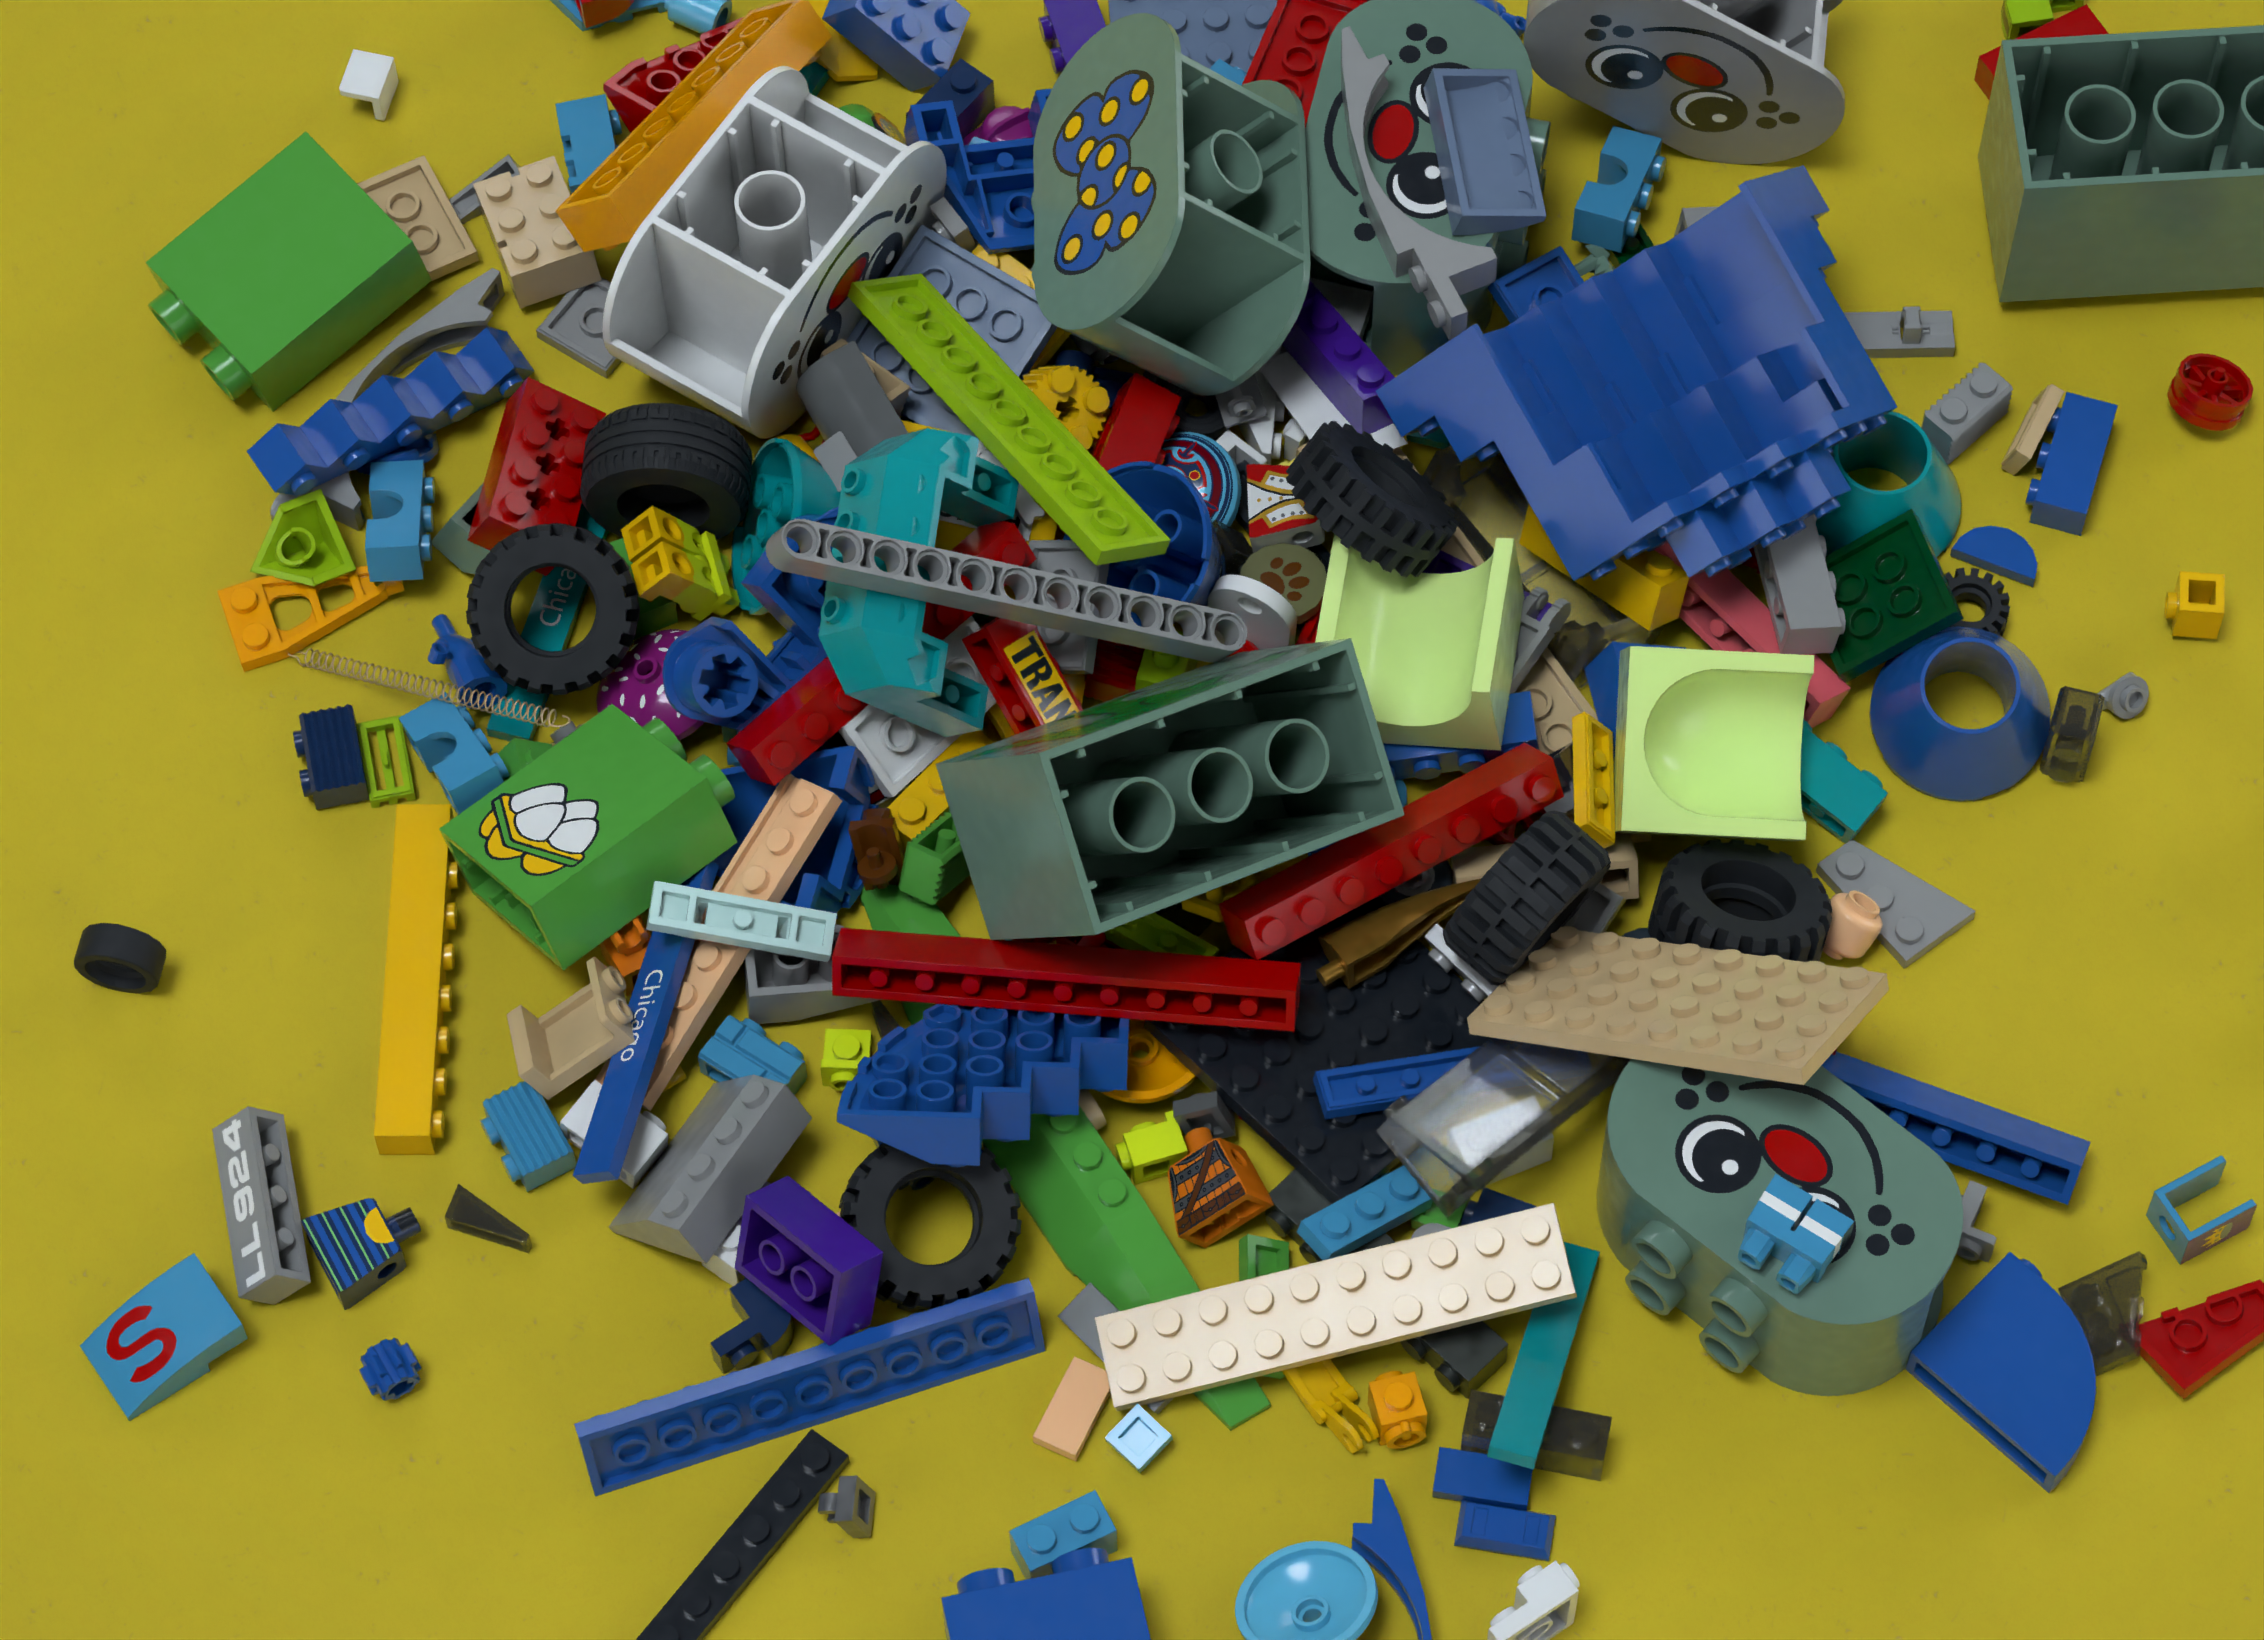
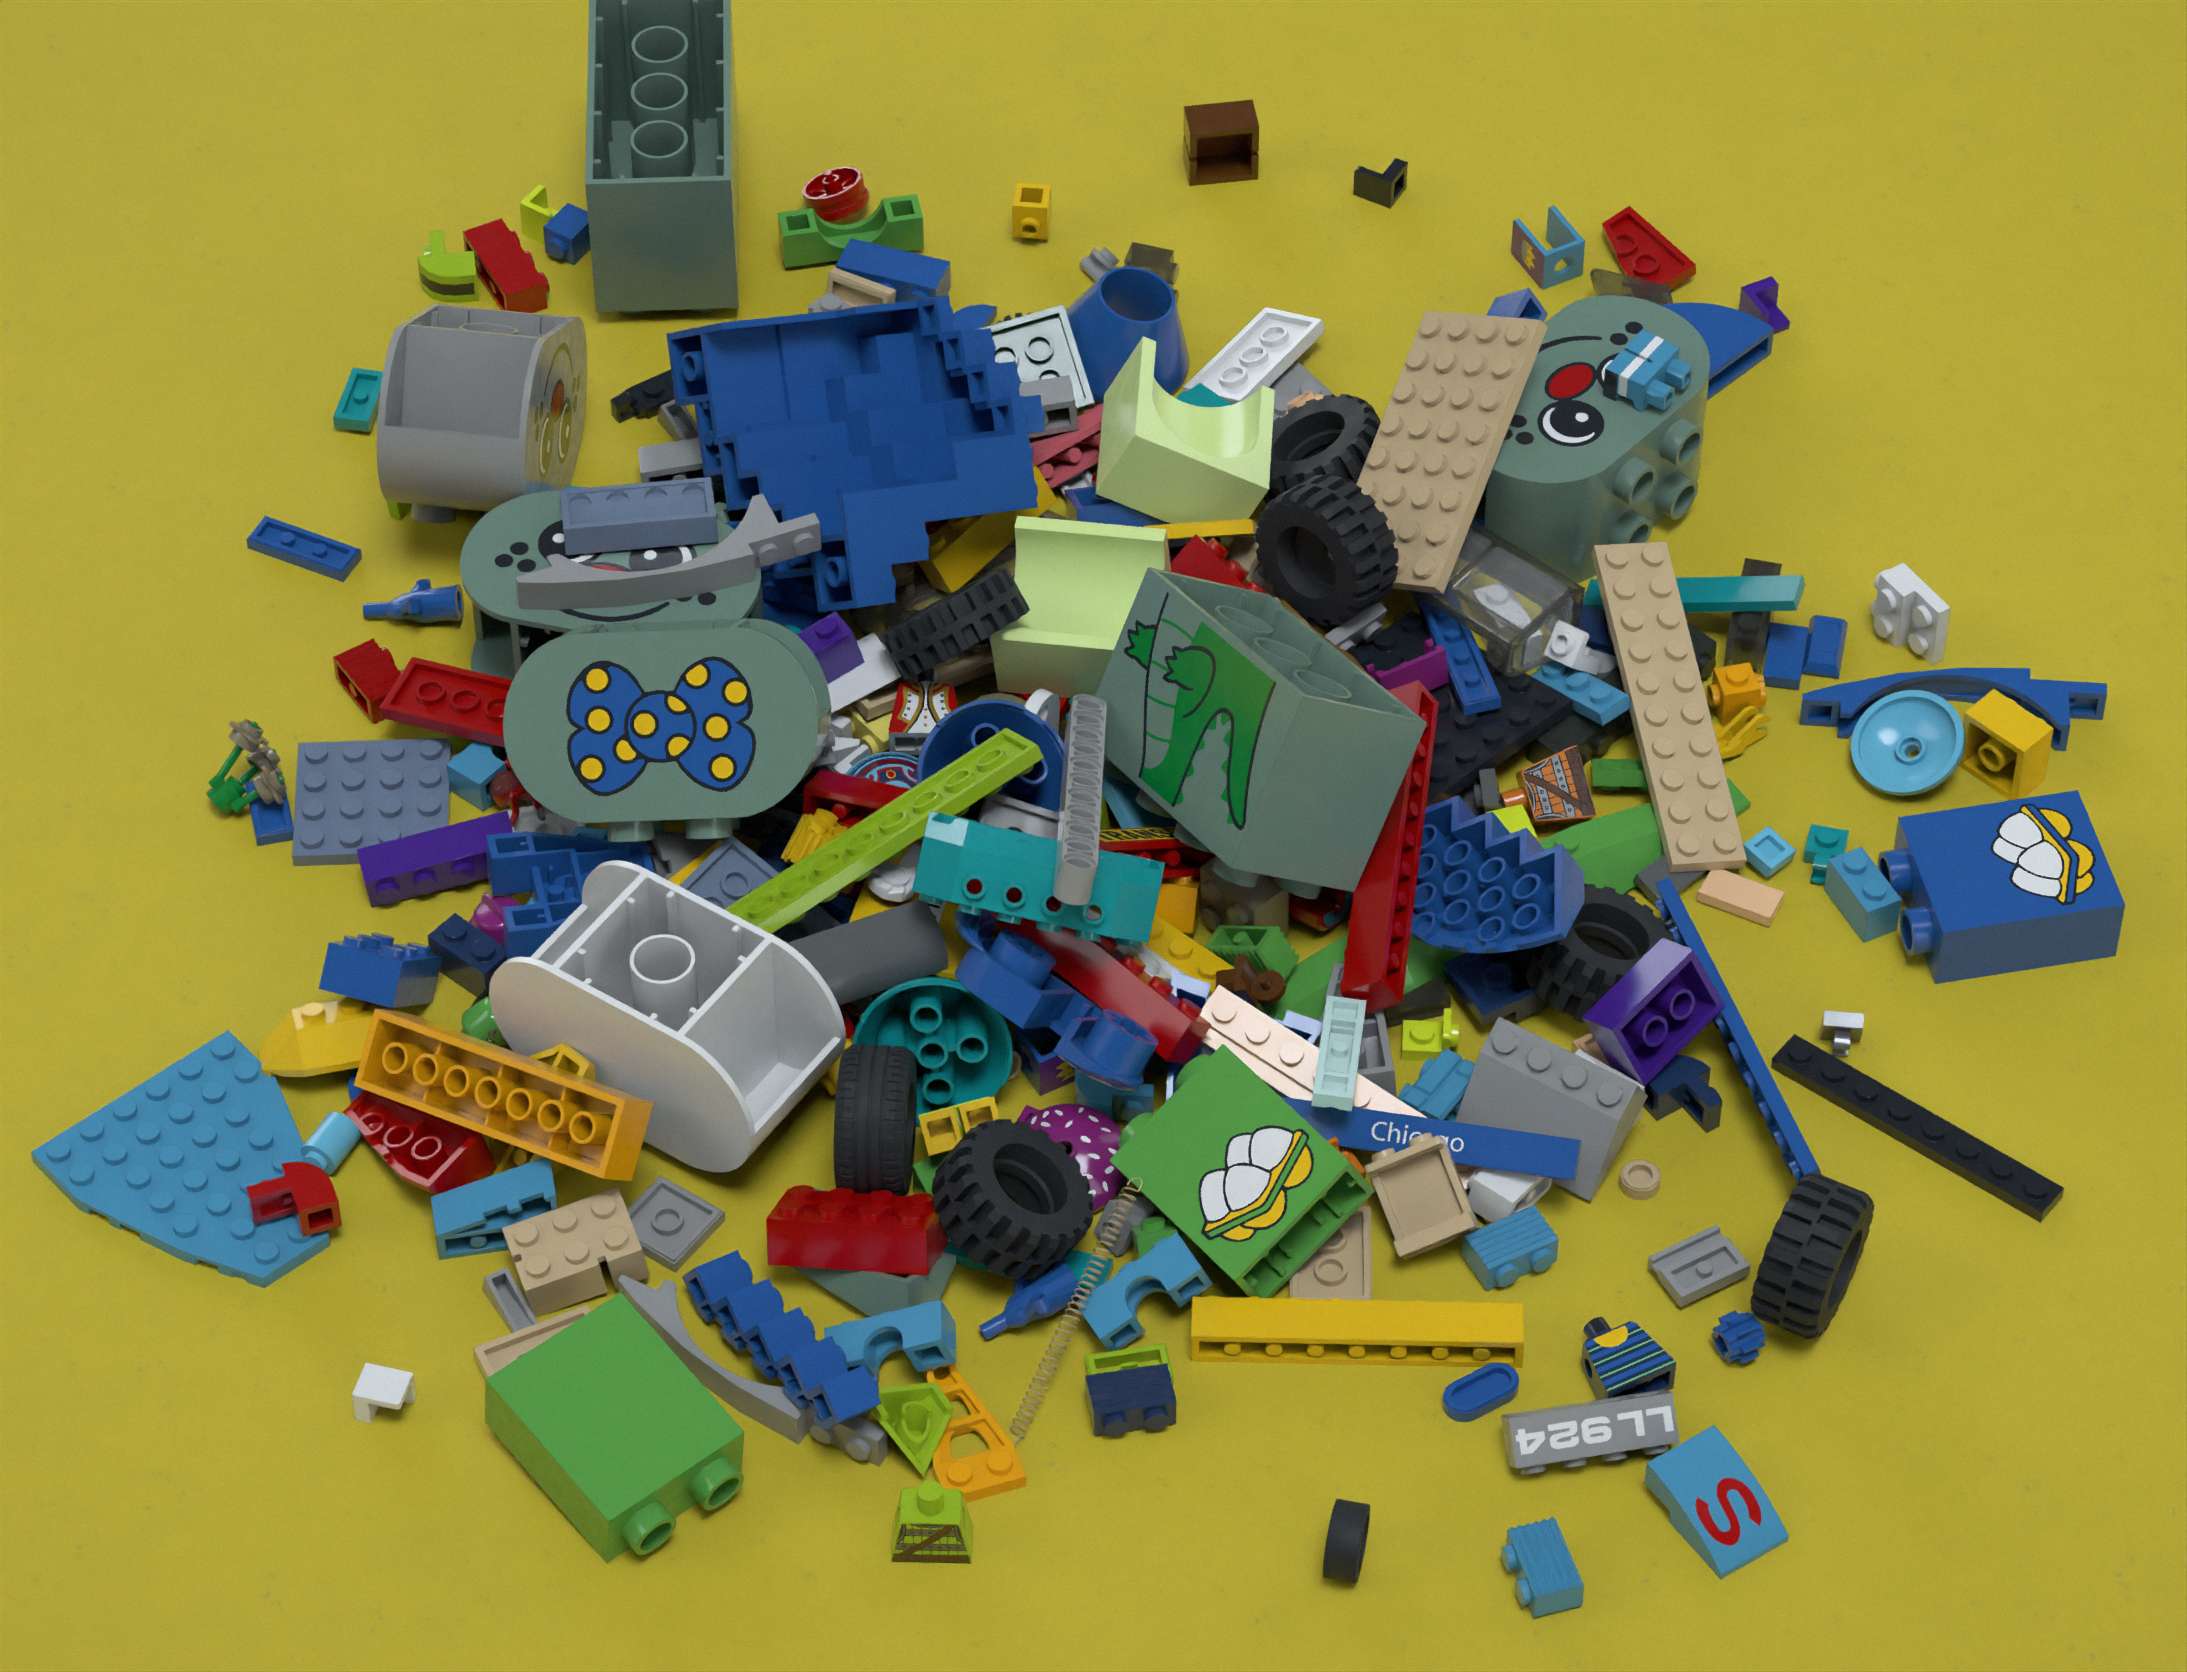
camera: 90 degrees left, 15 degrees down
(87, 1159) = (1543, 1568): none -> dark azure brick
(169, 561) = (932, 1526): none -> lime torso
(340, 1108) = (1480, 1392): none -> blue tile
(450, 1424) = (1812, 1255): none -> black tyre
(478, 1219) = (1586, 1287): clear smoke piece -> none
(501, 1335) = (1698, 1266): none -> light grey plate
(510, 969) = (1340, 1265): none -> tan tile
(637, 1281) = (1640, 1180): none -> tan tile
(834, 456) = (890, 972): light grey sticker -> none
(1154, 1510) = (1822, 845): none -> teal plate
(1373, 1015) = (1428, 669): none -> magenta hinge
(1414, 1199) = (1569, 648): none -> white bracket
(1859, 239) = (643, 398): none -> black hinge
(1956, 863) = (1258, 354): none -> white plate
(2117, 1479) = (1761, 302): none -> dark purple panel
(2125, 374) = (811, 240): none -> bright green arch

